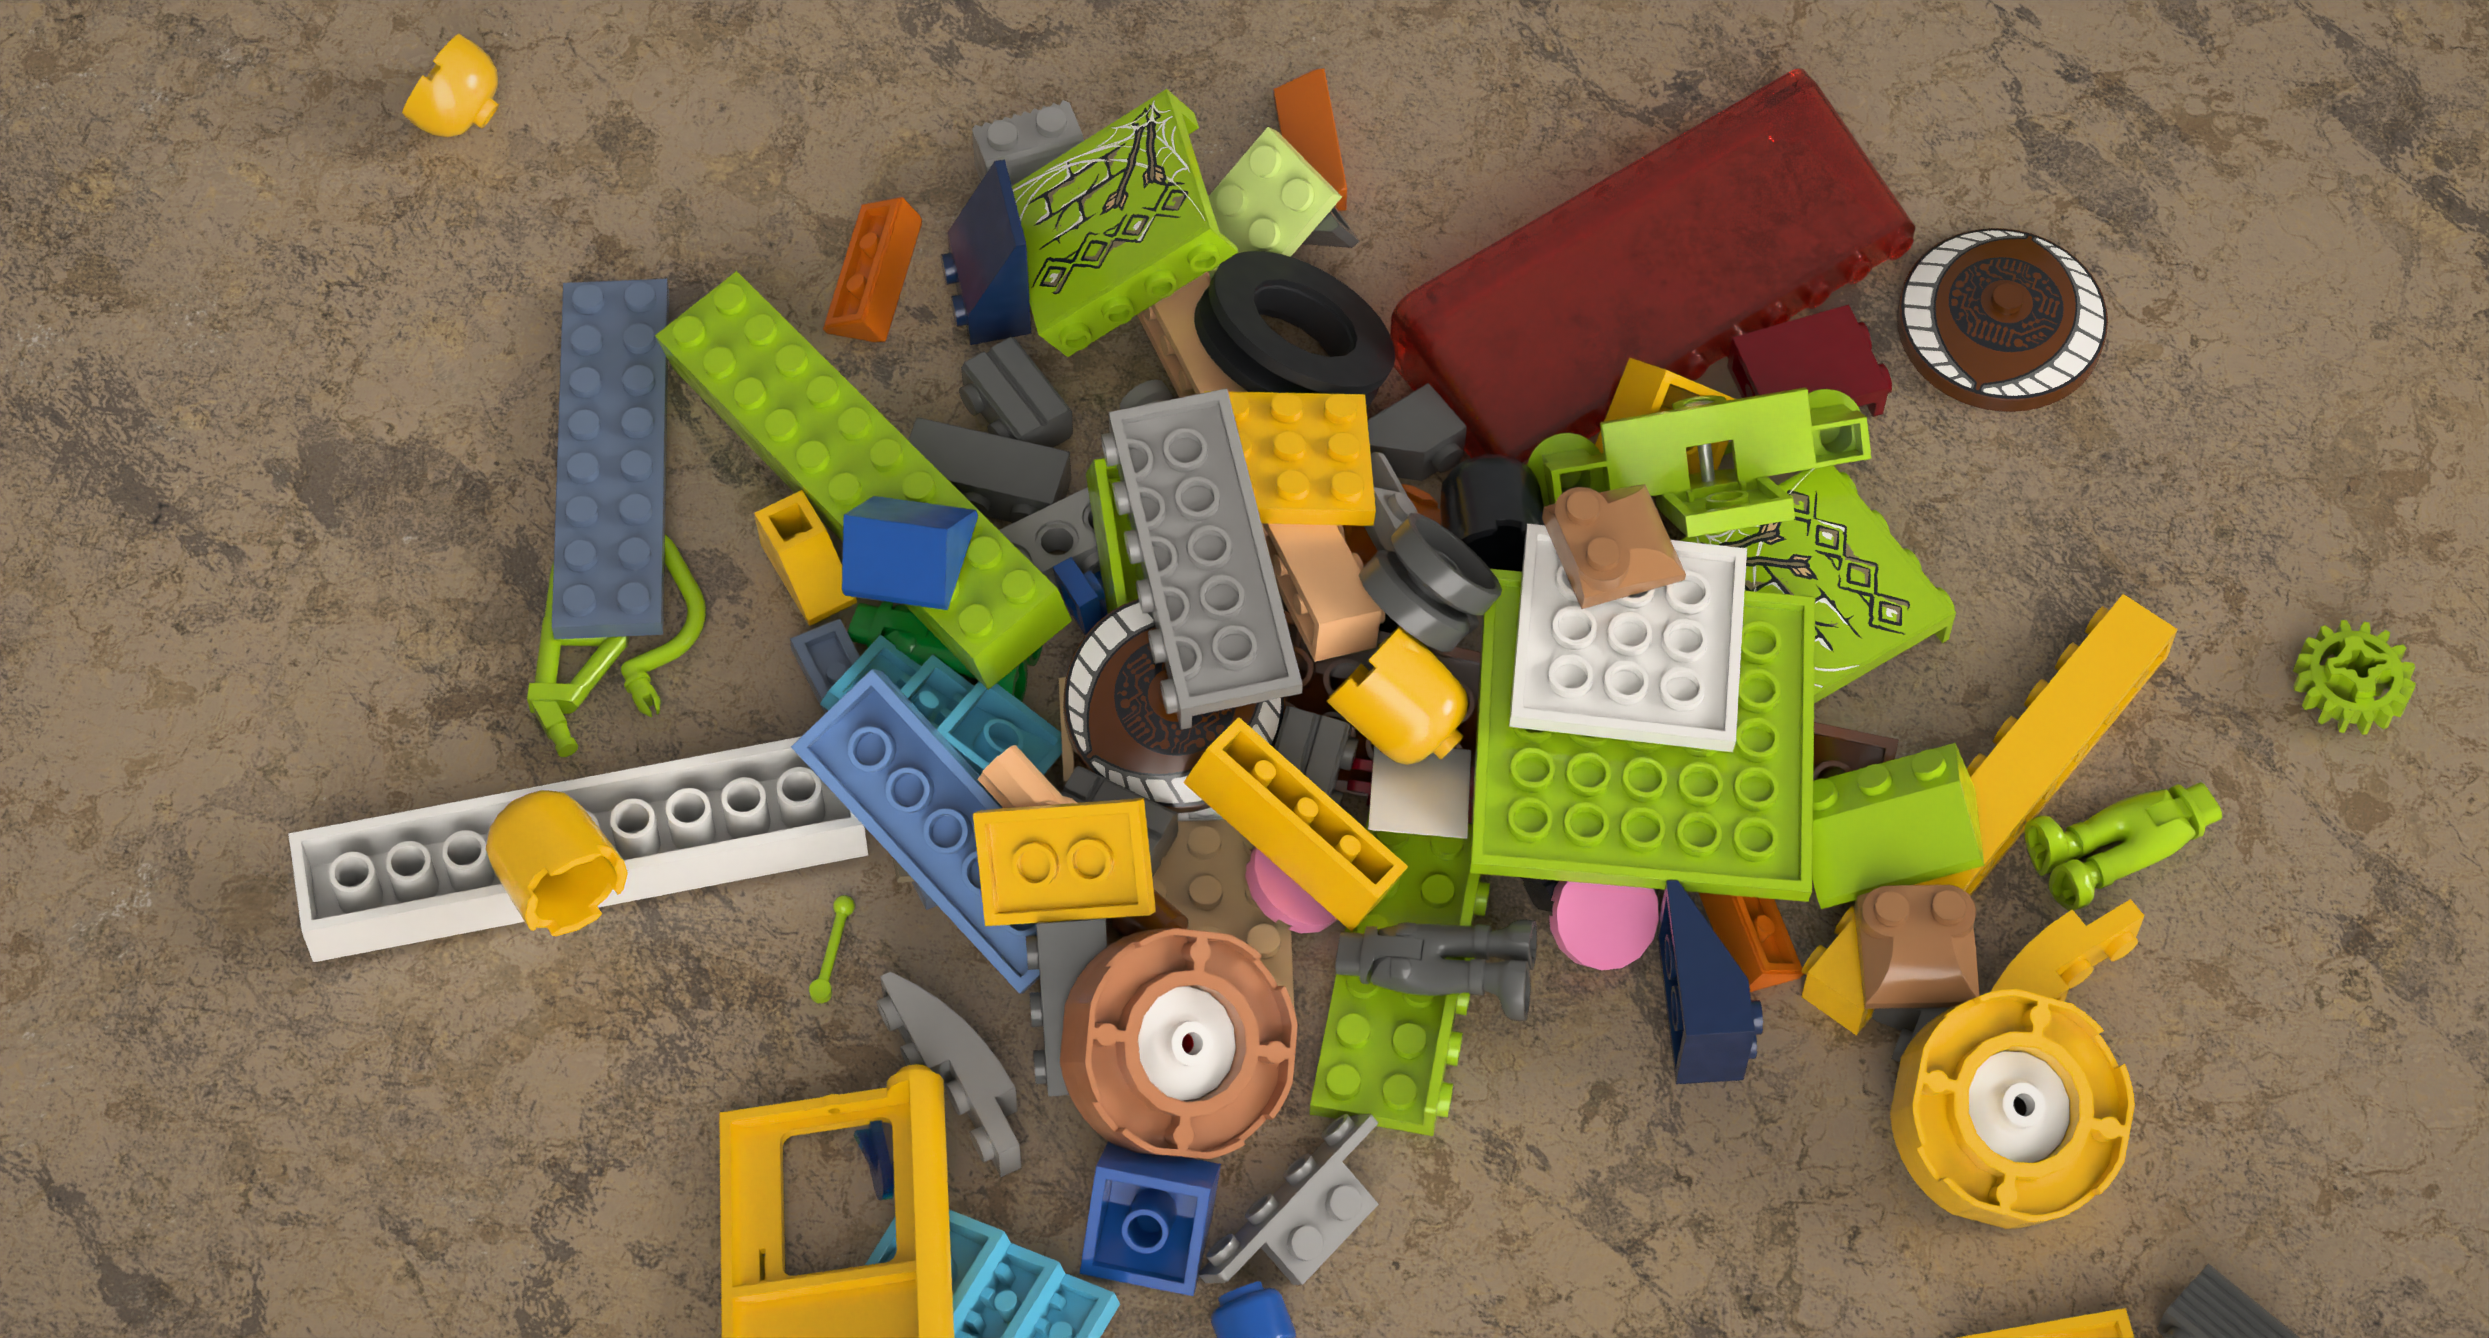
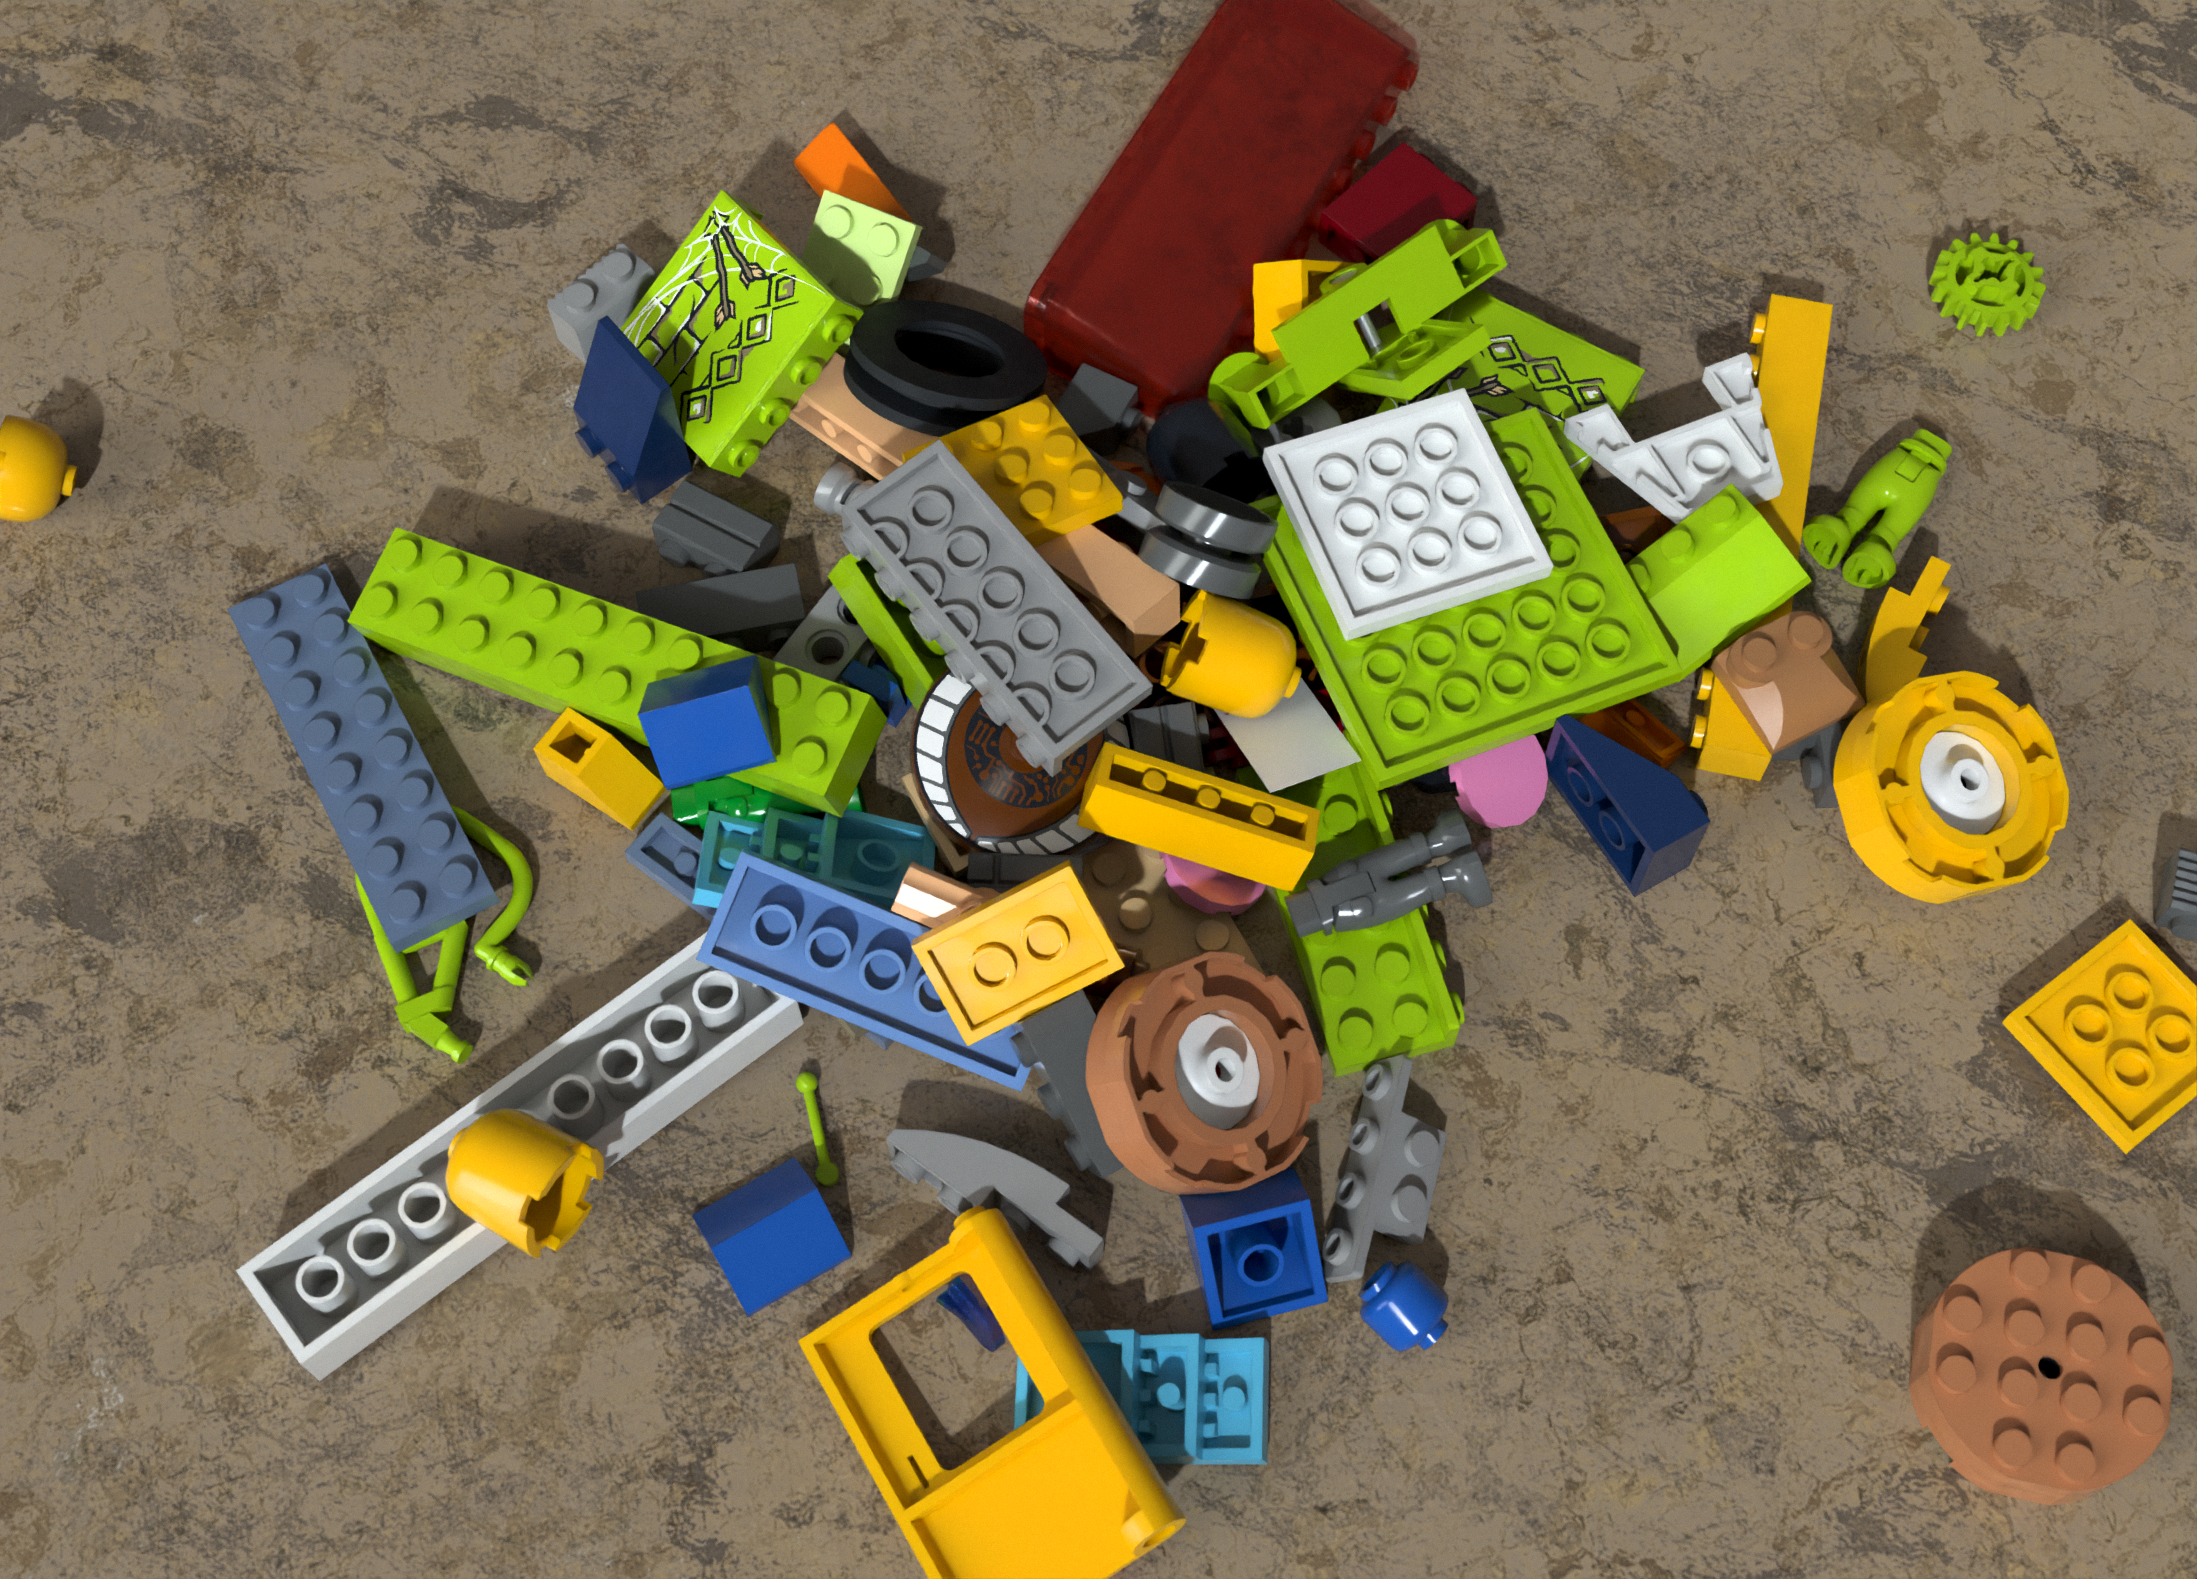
camera: 25 degrees left, 5 degrees up
(744, 1019) = (772, 1236): none -> blue slope
(874, 271) = (516, 474): orange slope -> none
(1611, 543) = (1349, 434): medium nougat slope -> none
(1933, 710) = (1696, 460): none -> white wing
(2002, 319) = (1525, 105): dish -> none

